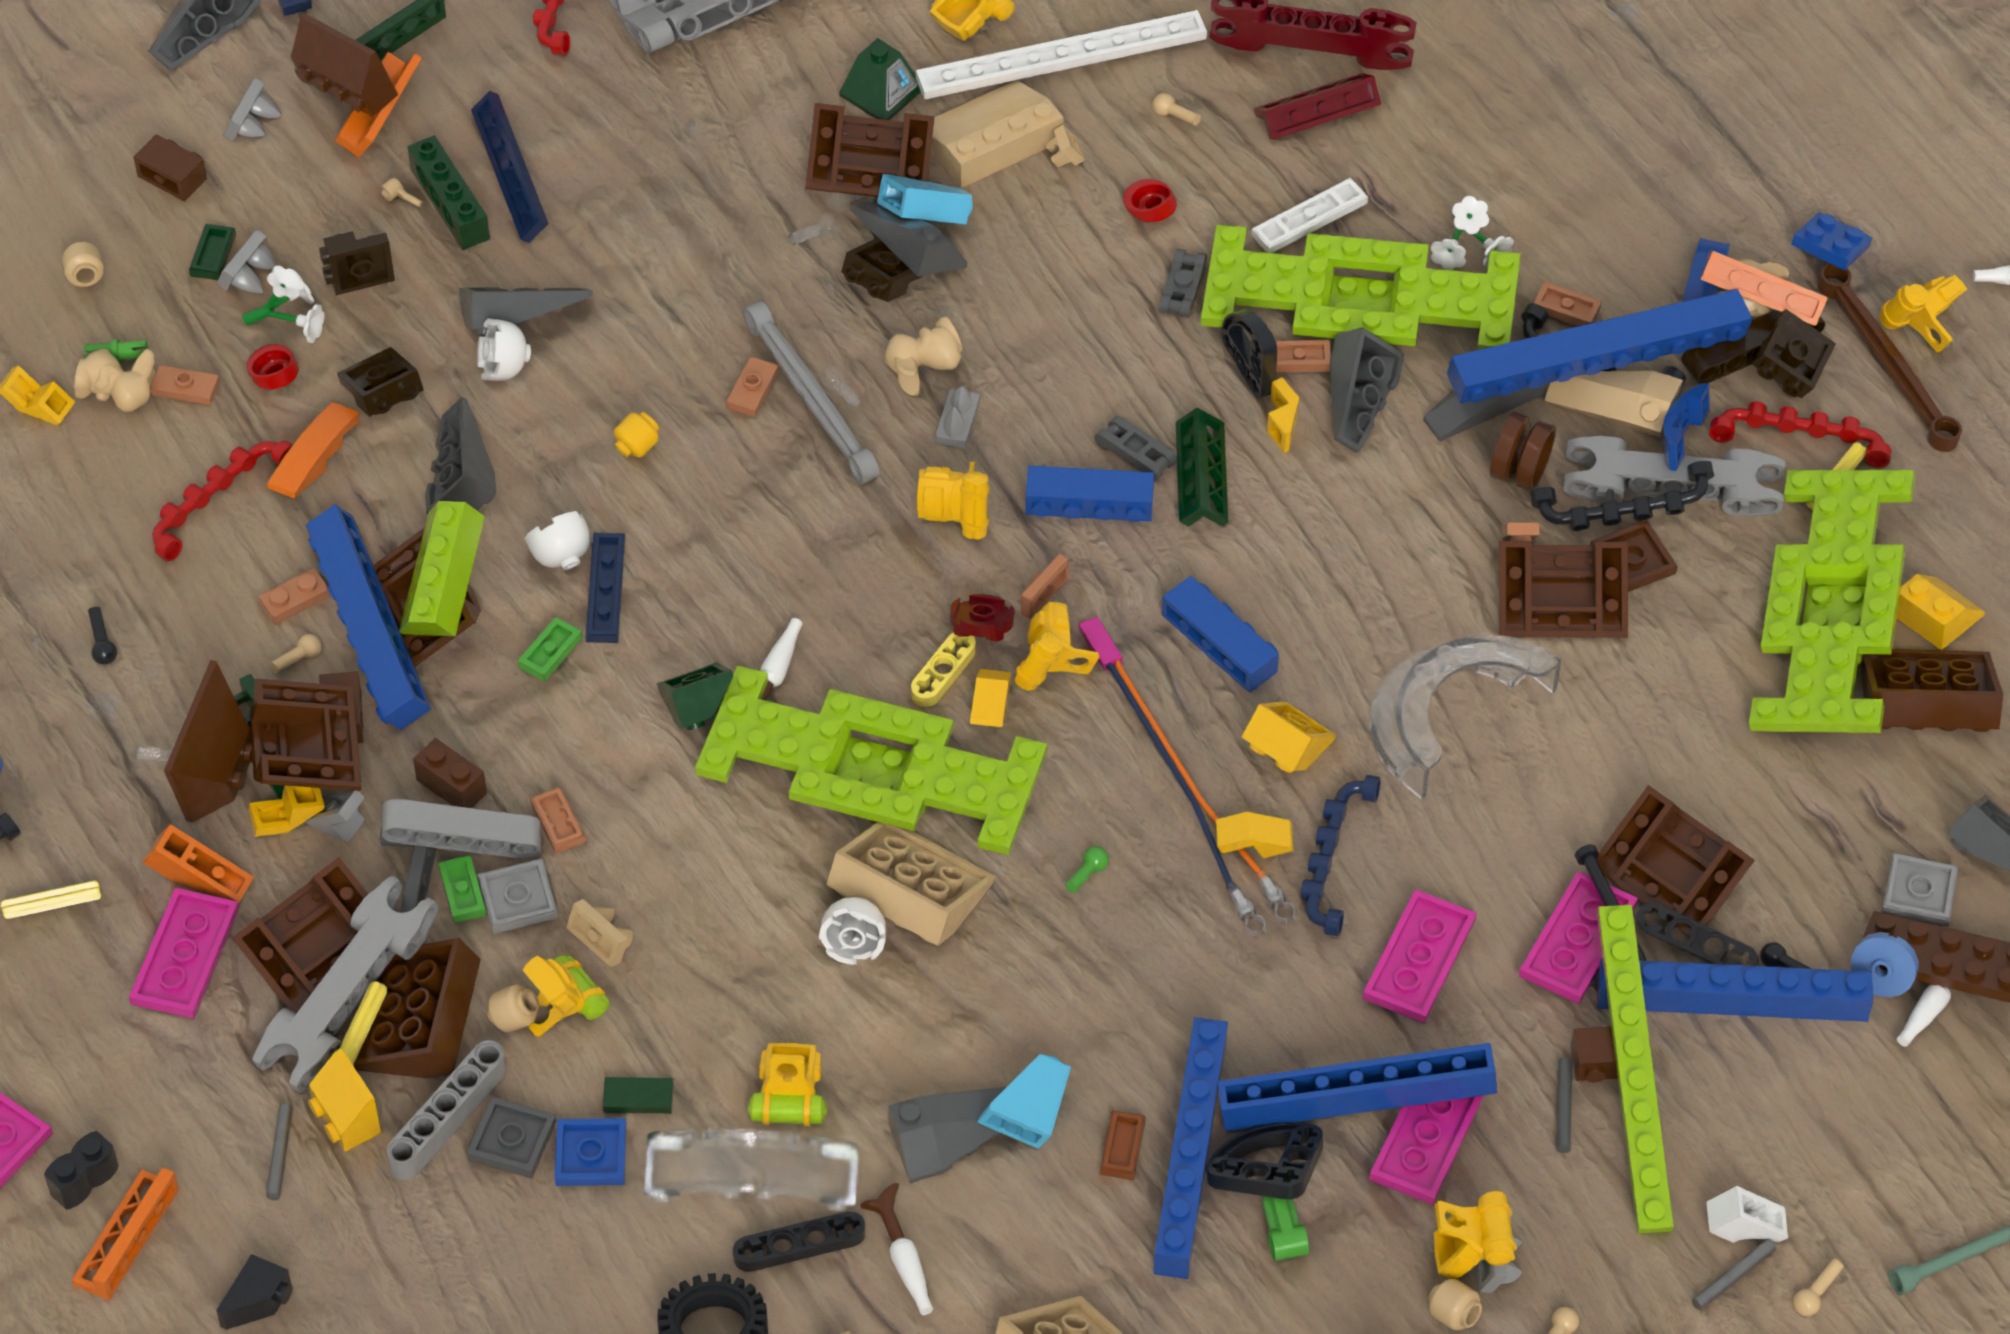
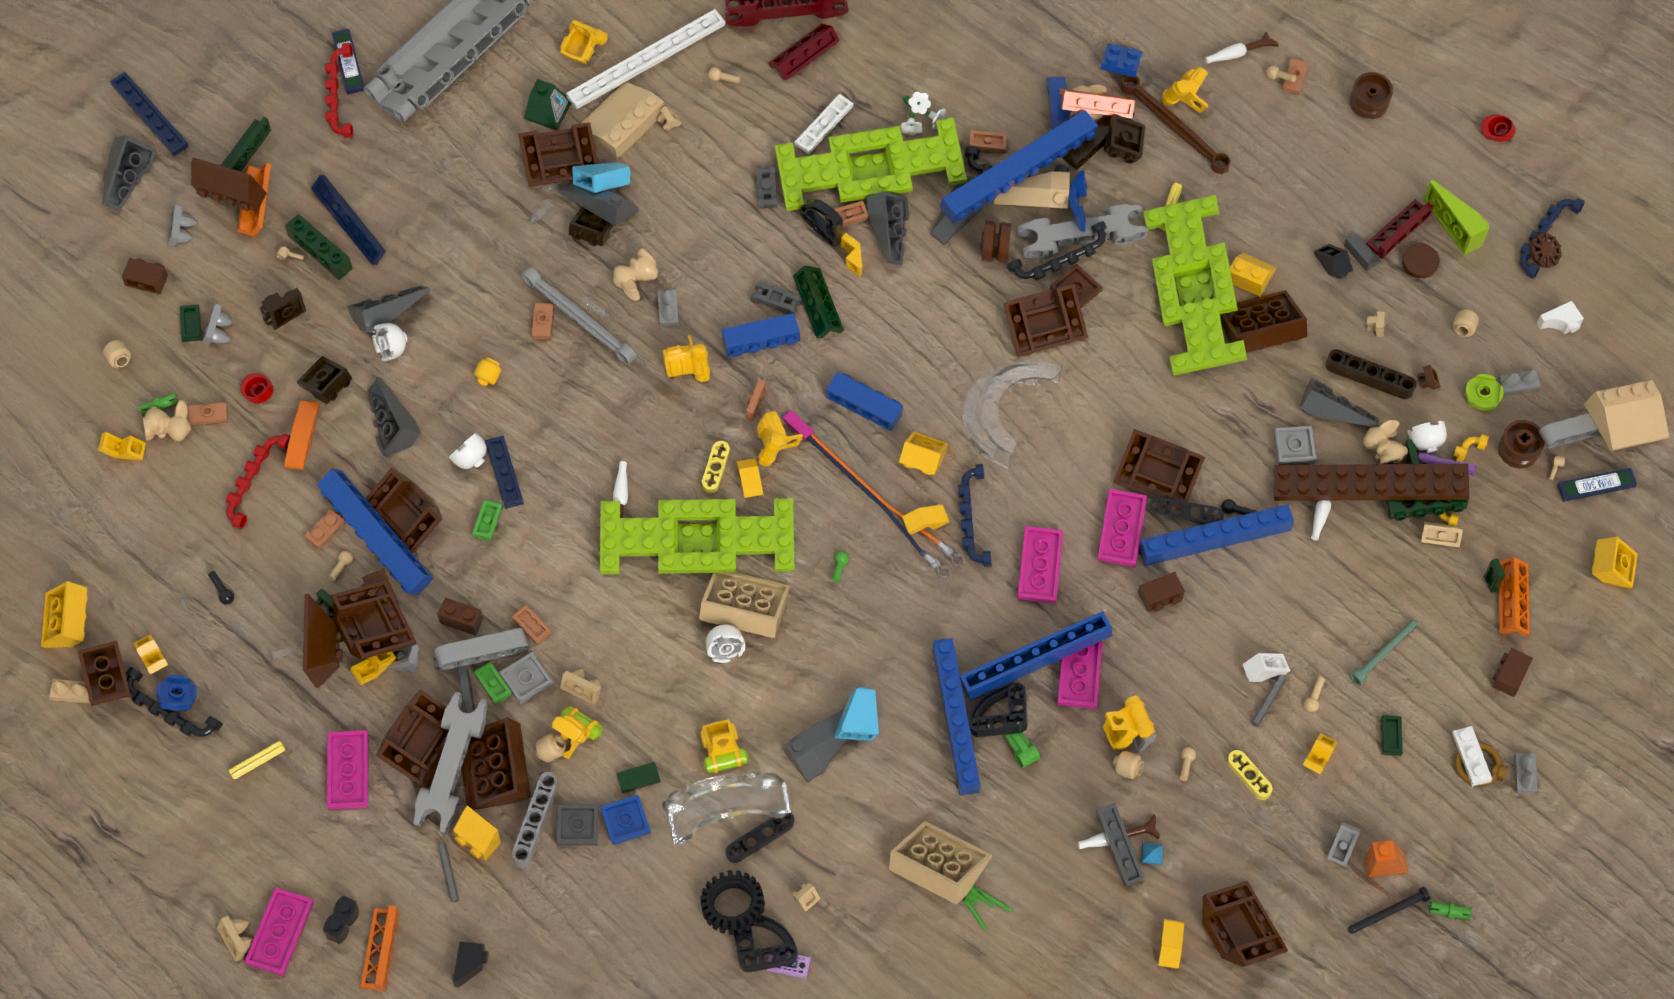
camera: 20 degrees left, 10 degrees up
(196, 866) = (334, 715): orange slope -> none
(289, 286) = (250, 336): white plant -> none
(363, 1020) = (467, 783): light yellow axle -> none
(442, 570) = (411, 494): lime slope -> none
(695, 694) = (582, 524): dark green slope -> none
(902, 1250) = (819, 825): white piece -> none
(981, 617) = (736, 431): dark red plate -> none
(1122, 1145) = (916, 725): dark orange tile -> none
(1150, 200) = (729, 139): red hat -> none
(1520, 531) = (1011, 292): nougat plate -> none
(1564, 1105) = (1146, 629): dark grey bar -> none
(1588, 856) = (1112, 479): black bar -> none
(1635, 1069) = (1180, 599): lime plate -> none
(1877, 452) = (1149, 178): red bar -> none
(1892, 953) = (1294, 494): medium blue plate -> none

